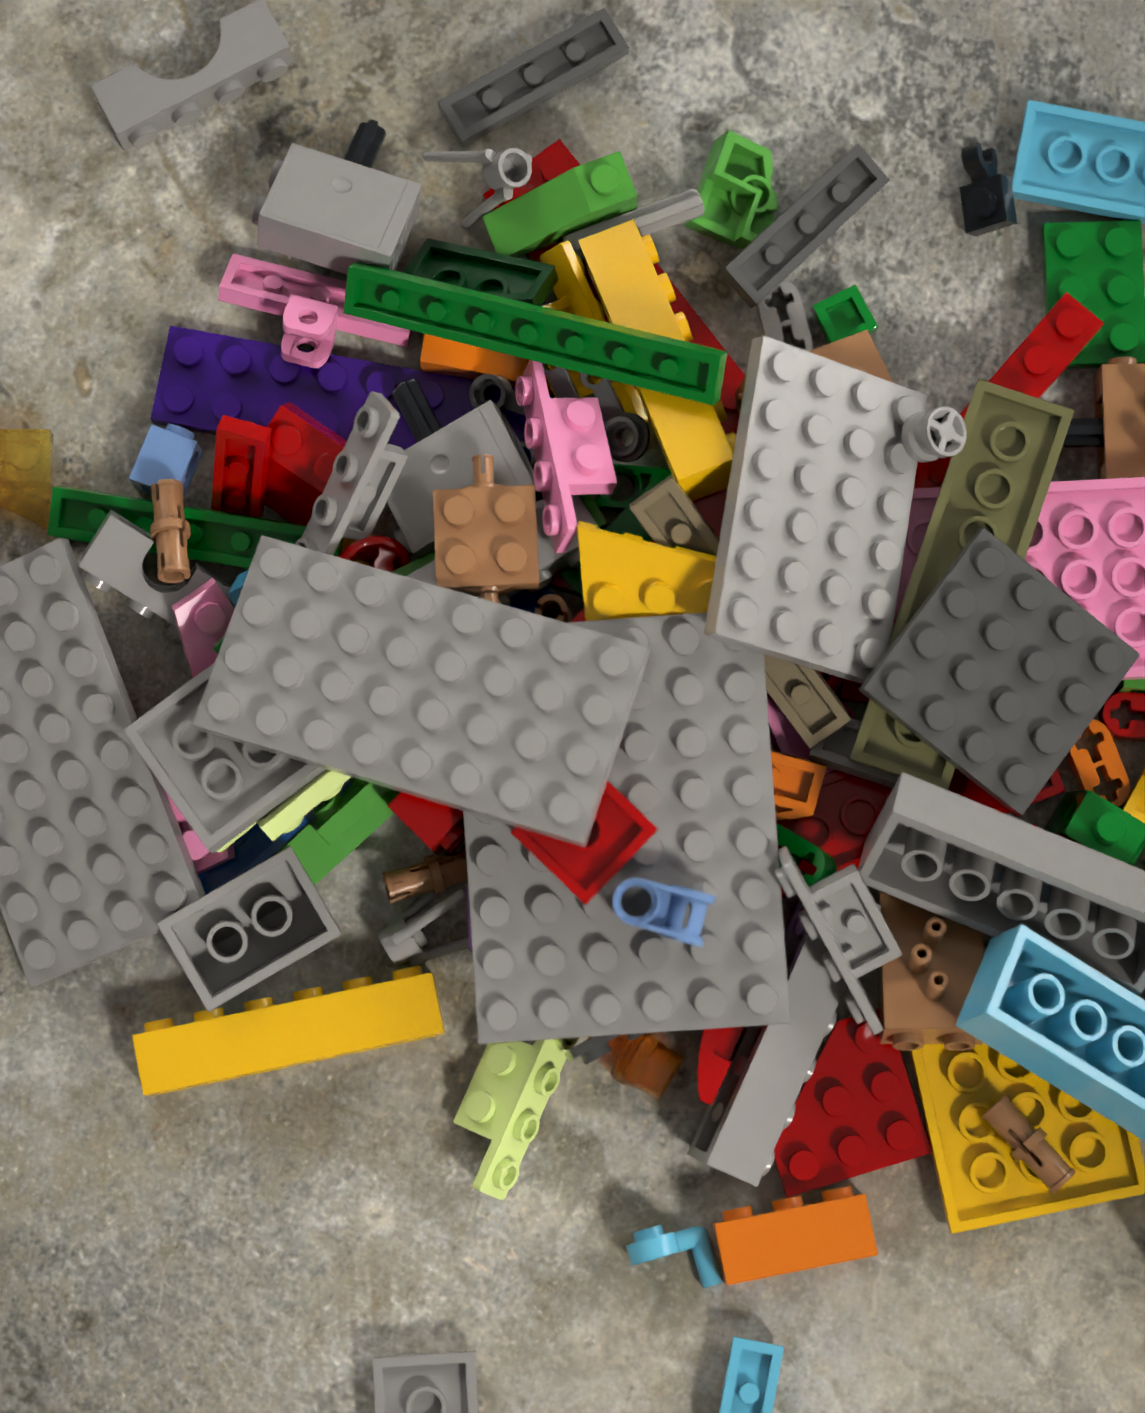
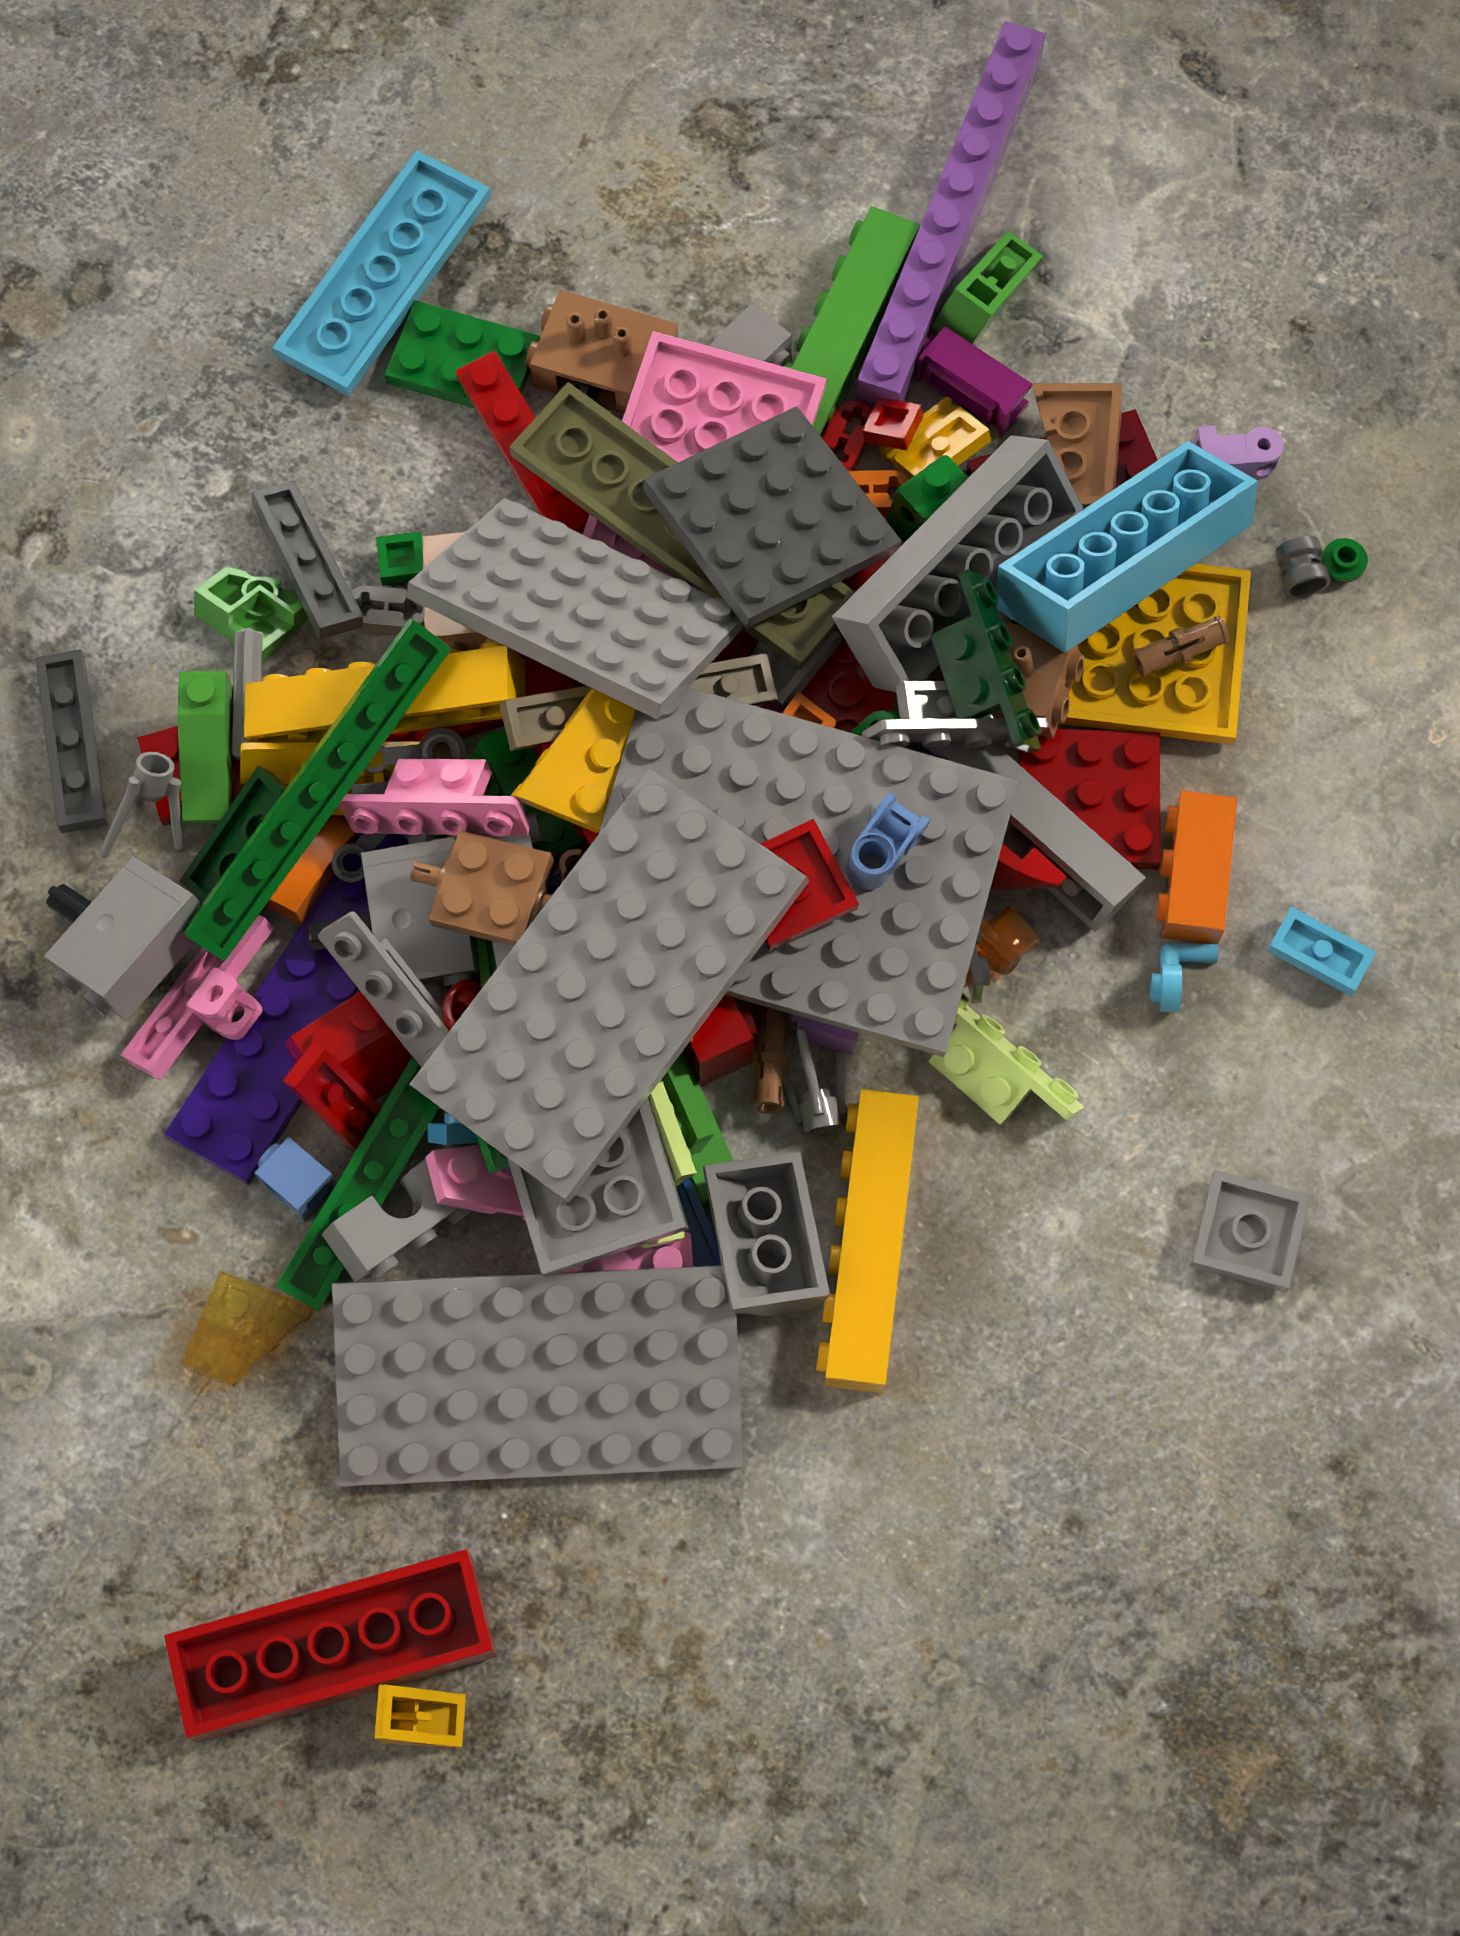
camera: 70 degrees left, 10 degrees down
(170, 531) = (366, 1179): medium nougat pin -> none
(903, 945) = (980, 666): none -> dark green bracket
(934, 434) = (544, 495): light grey wheel -> none
(989, 198) = (345, 407): black plate -> none

